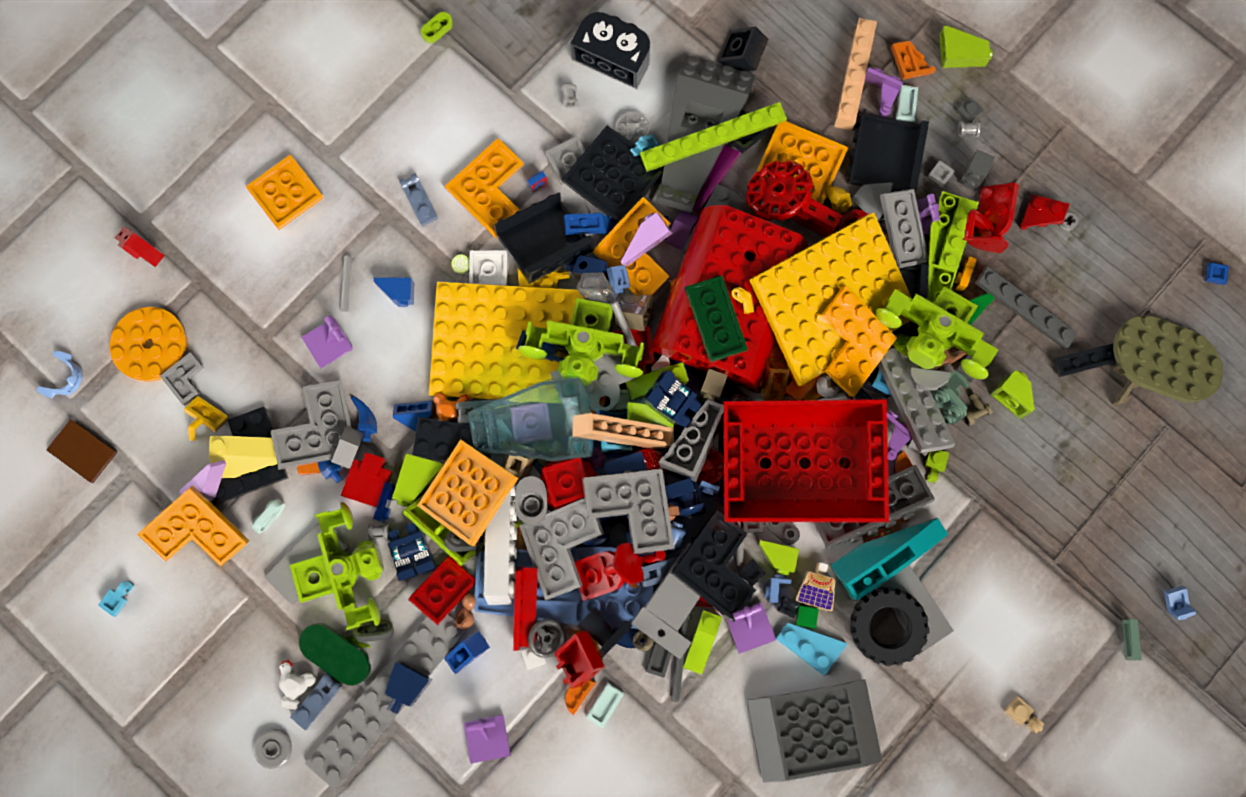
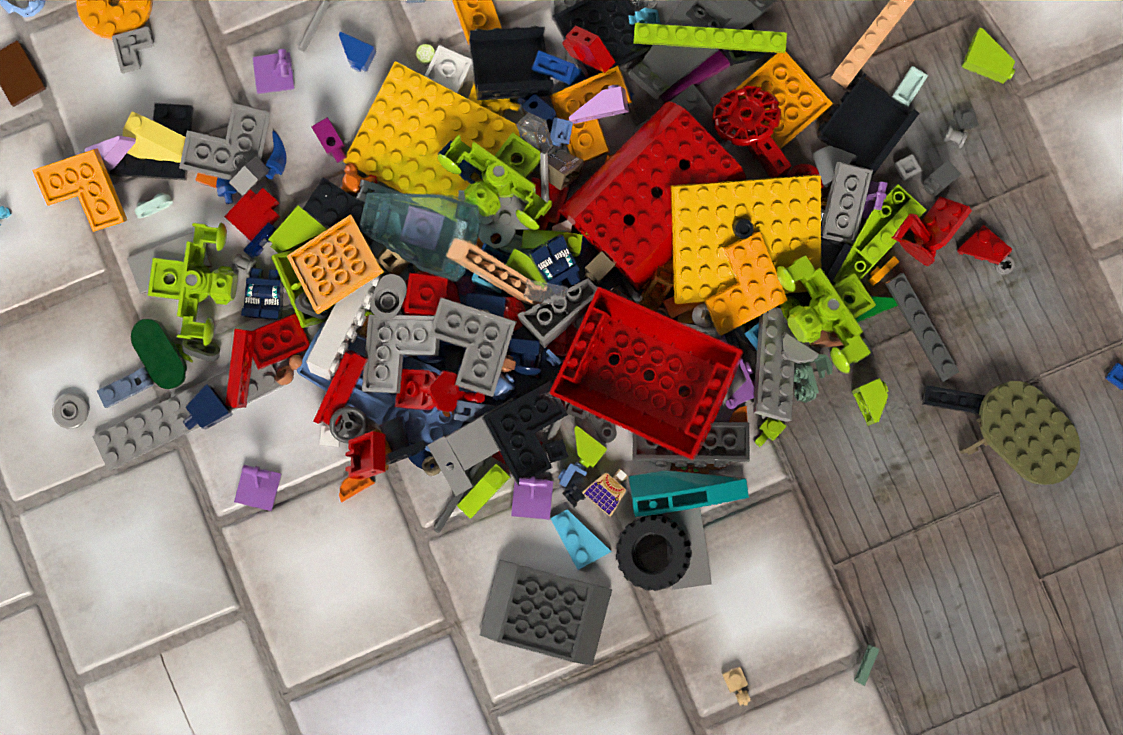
camera: 25 degrees right, 5 degrees up
(204, 414) = (136, 89): yellow plate -> none
(293, 684) = (111, 363): white animal -> none
(401, 374) = (325, 133): none -> magenta torso
(409, 412) = (317, 169): blue slope -> none
(420, 632) = (240, 368): none -> red fence
(467, 652) = (273, 405): blue slope -> none
(537, 181) = (530, 7): blue tile -> none
(605, 705) = (373, 506): light aqua tile -> none
(616, 195) = (592, 52): none -> red piece
(658, 660) = (438, 489): dark grey tile -> none
(676, 430) = (545, 292): none -> clear slope
(682, 229) = (641, 111): medium lavender slope -> none
(715, 319) = (624, 208): dark green tile -> none
(743, 297) = (659, 200): yellow arm -> none
(807, 617) = (587, 512): green tile -> none
(829, 289) = (743, 228): none -> black tile
(839, 199) = (800, 149): yellow plate -> none
(890, 87) = (898, 65): medium lavender plate -> none
(910, 61) = (932, 47): orange wing -> none
(981, 410) = (835, 401): dark tan piece -> none
(1178, 603) = (925, 653): medium blue bracket -> none

